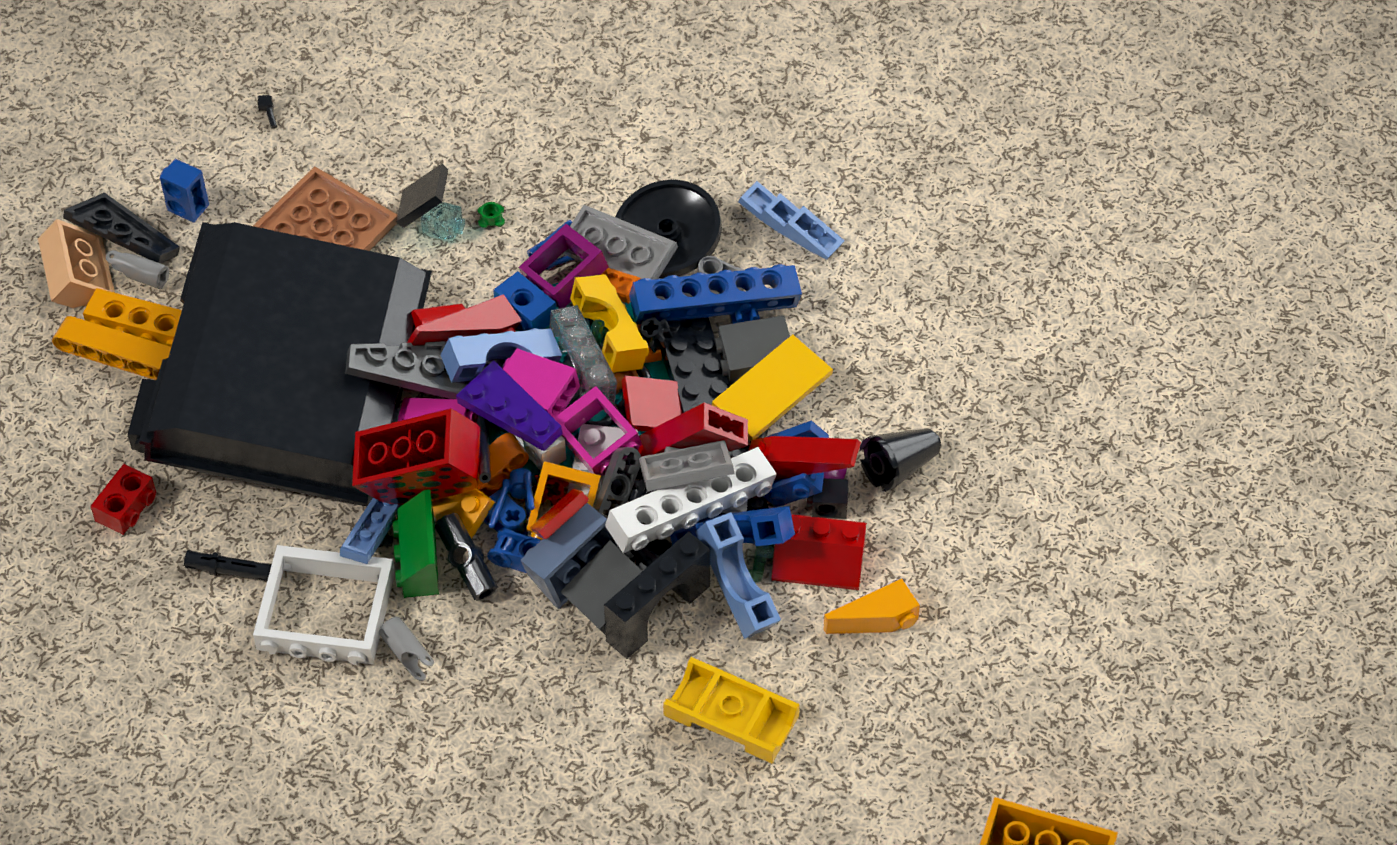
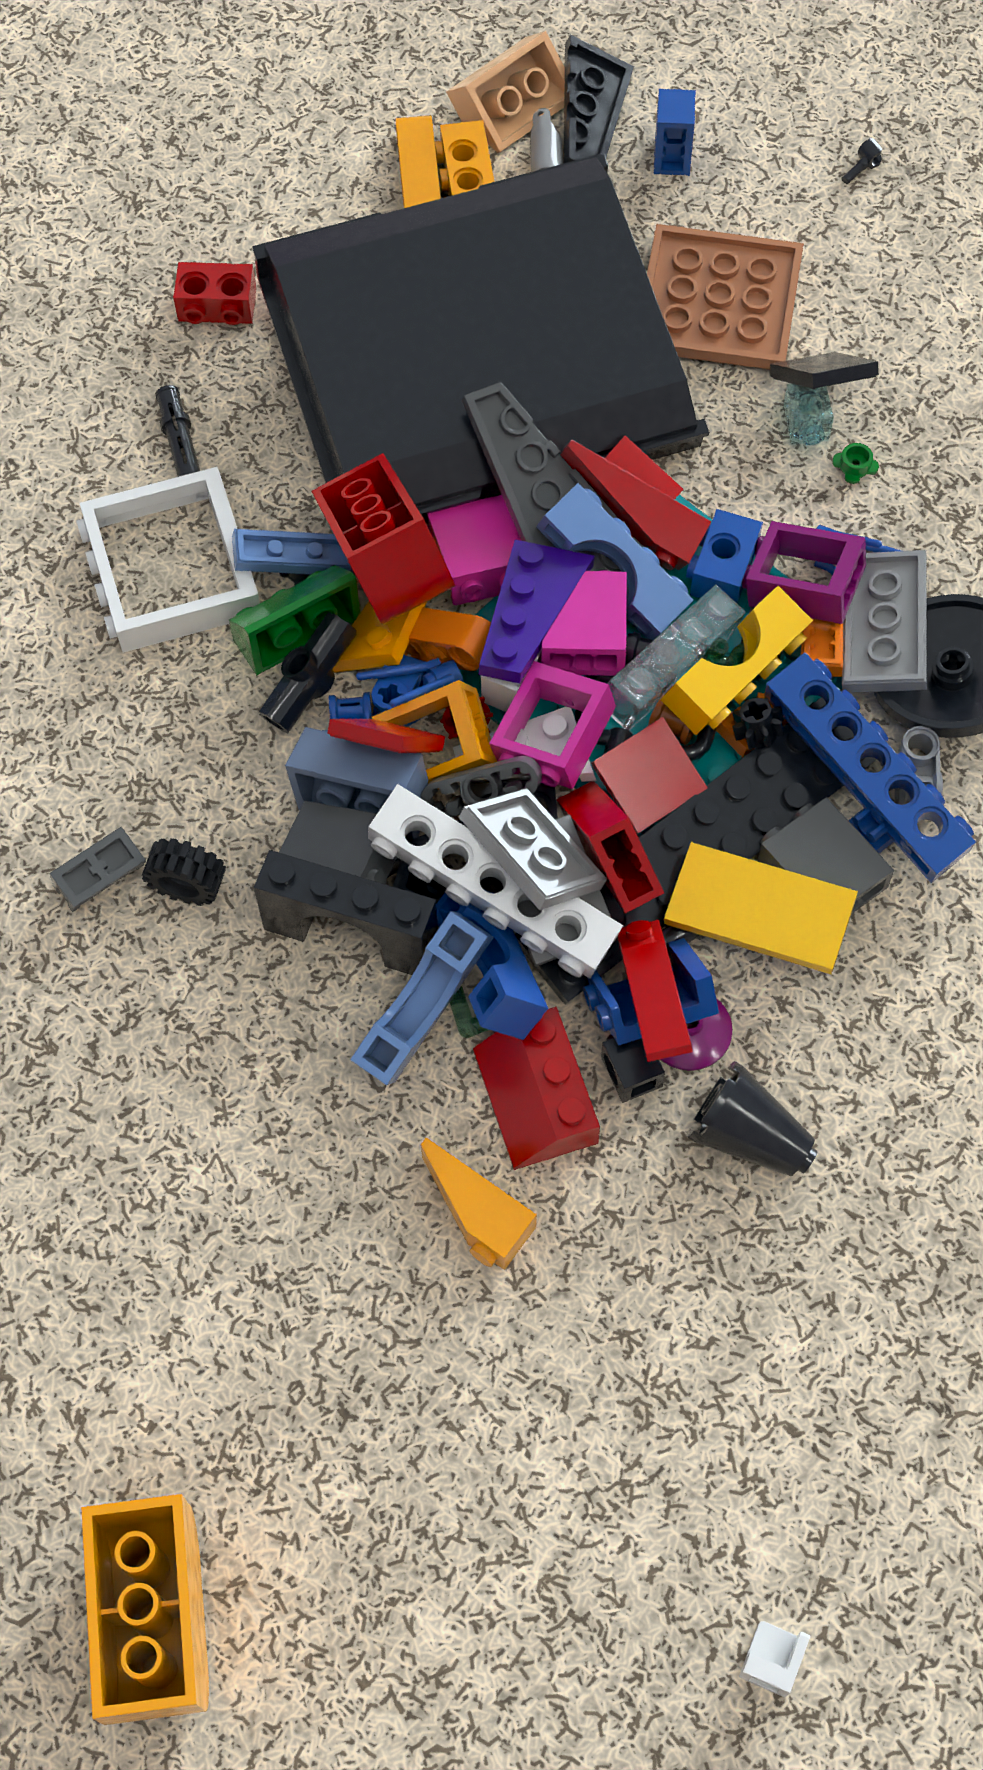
camera: 65 degrees right, 10 degrees up
(405, 646) = (153, 672): light grey piece -> none
(484, 453) = (437, 610): black piece -> none
(537, 728) = (96, 868): none -> dark grey hinge
(571, 676) = (183, 871): none -> black tyre
(733, 709) = (229, 1091): yellow piece -> none
(1205, 578) = (774, 1658): none -> white panel

